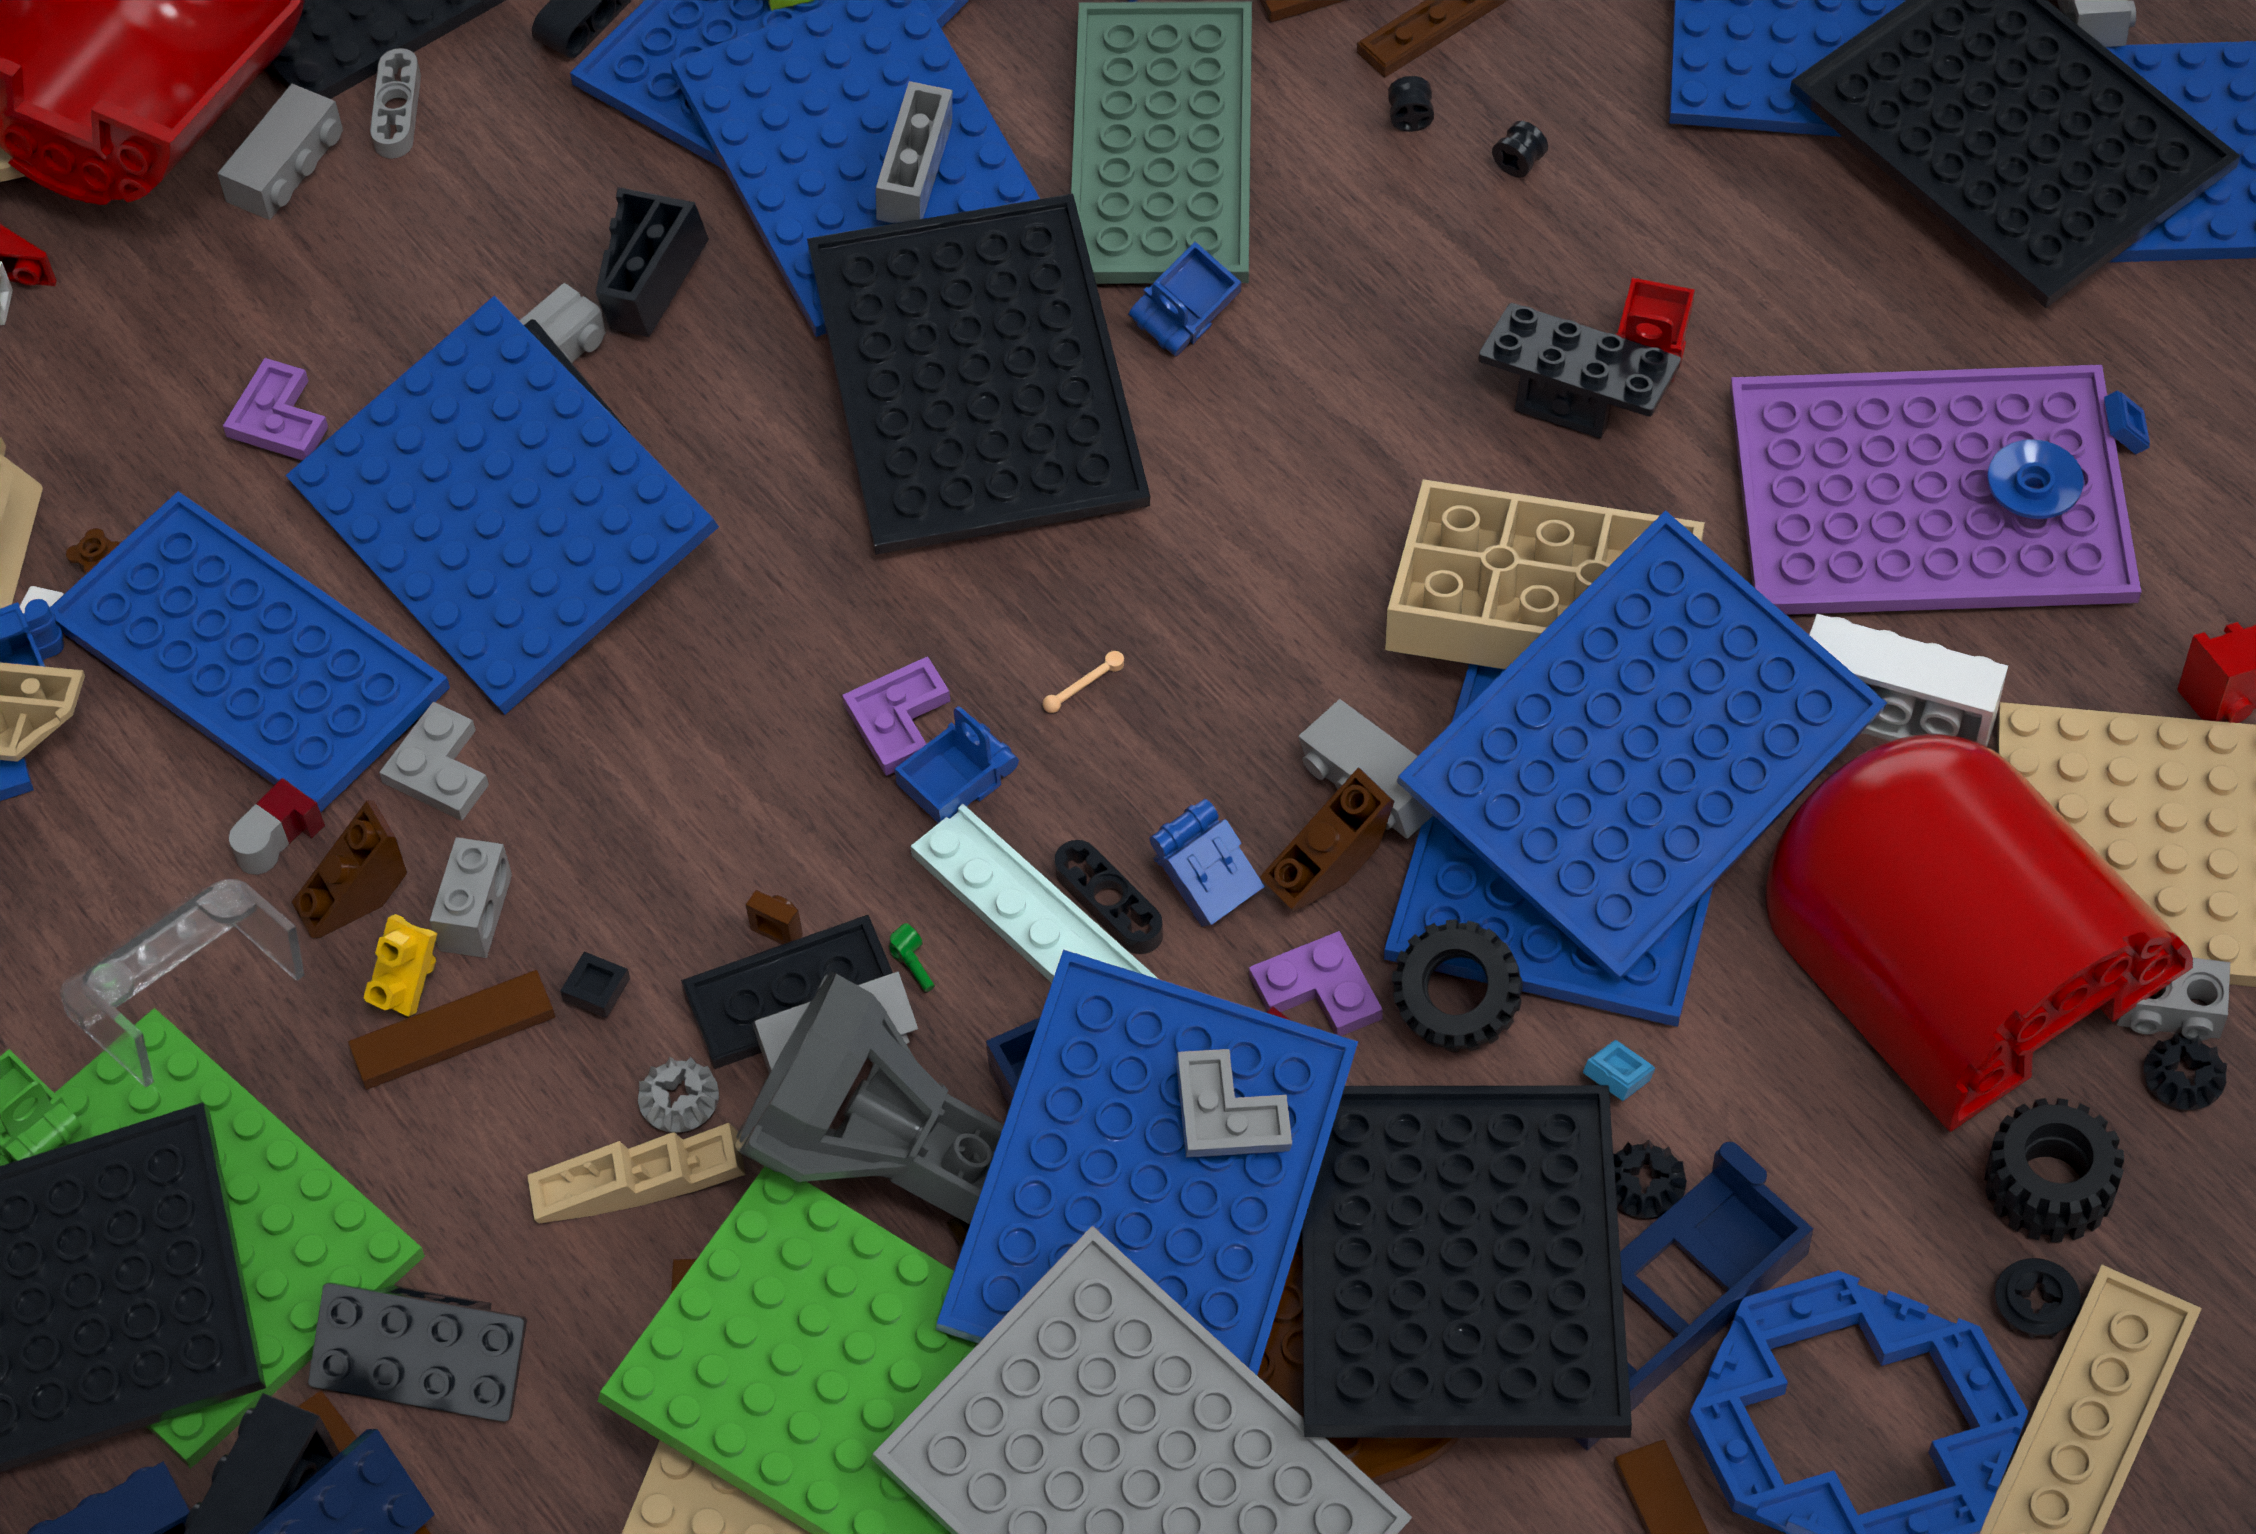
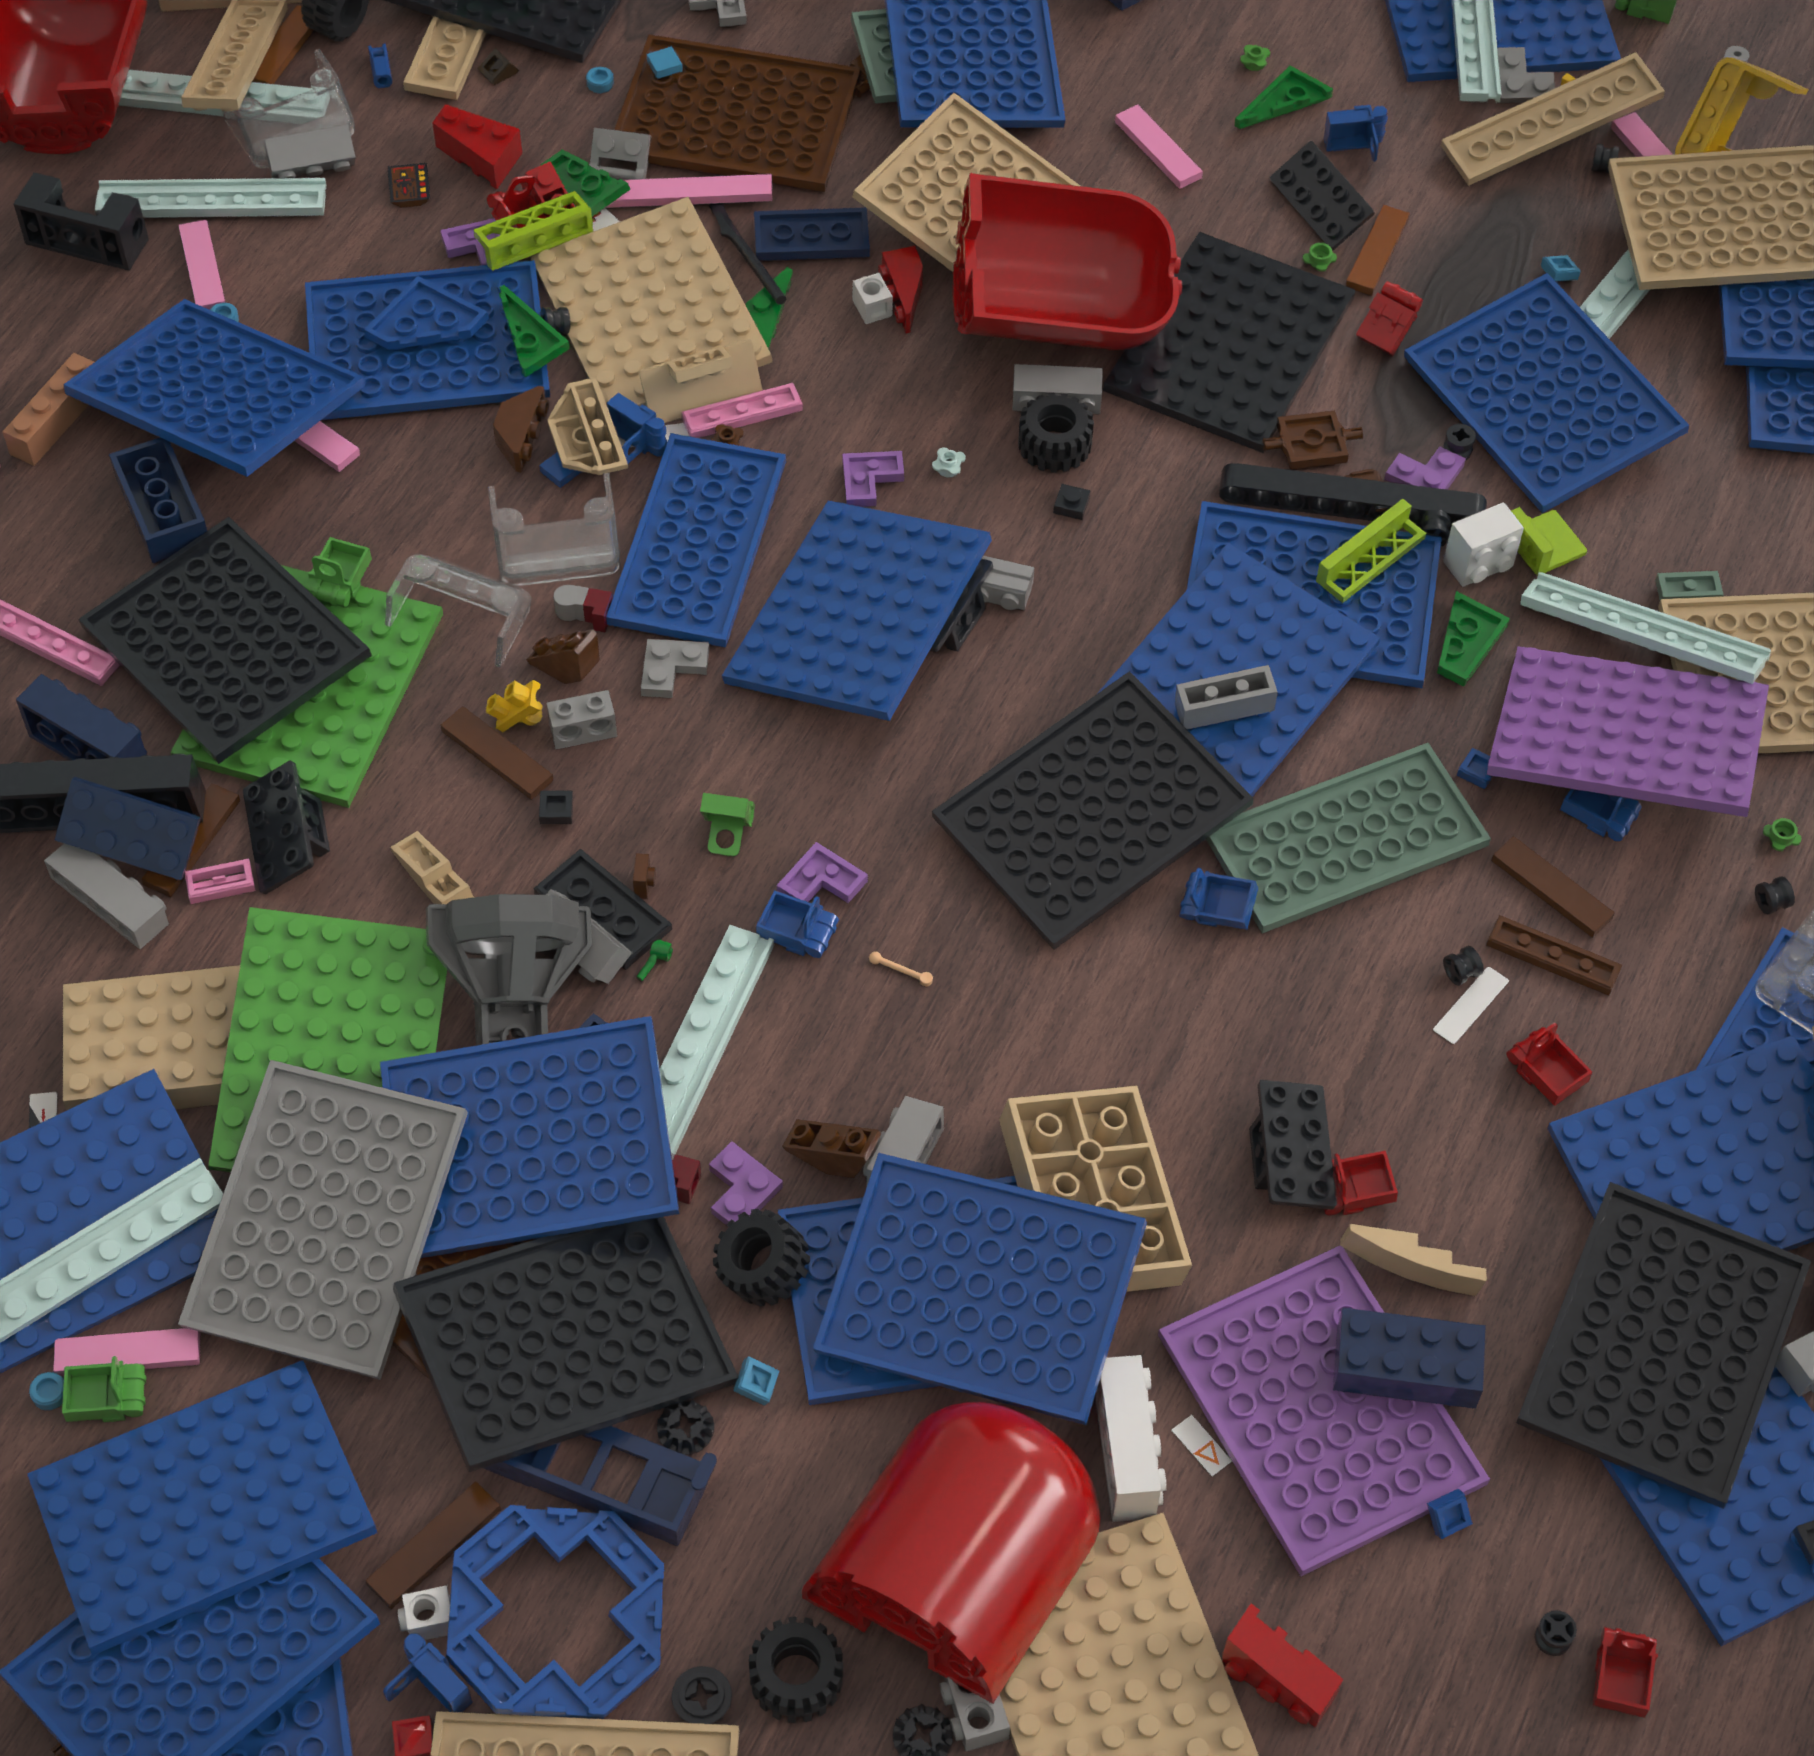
camera: 60 degrees right, 0 degrees up
(55, 520) = (742, 410): none -> bright pink tile
(156, 833) = (557, 548): none -> clear windscreen
(314, 318) = (948, 462): none -> light aqua plate
(350, 153) = (1061, 415): none -> black tyre
(402, 117) = (1138, 418): light grey beam -> none
(445, 1510) = (220, 885): none -> bright pink tile
(468, 212) = (1071, 501): none -> black plate
(647, 258) = (1077, 602): black wedge -> none
(689, 1110) = (519, 877): light grey gear -> none
(743, 777) = (726, 814): none -> bright green piece
(1111, 917) = (748, 1059): black beam -> none
(1205, 862) = (786, 1082): piece -> none
(1218, 1121) = (577, 1148): light grey plate -> none
(1461, 128) = (1471, 1005): none -> white sticker
(1520, 149) = (1464, 1044): black wheel -> none
(1587, 82) = (1549, 1064): none -> red piece
(1785, 318) = (1401, 1255): none -> tan slope
(1925, 365) = (1409, 1358): none -> dark blue brick
(1932, 629) = (1201, 1445): none -> white sticker
(2039, 466) = (1351, 1448): blue dish -> none

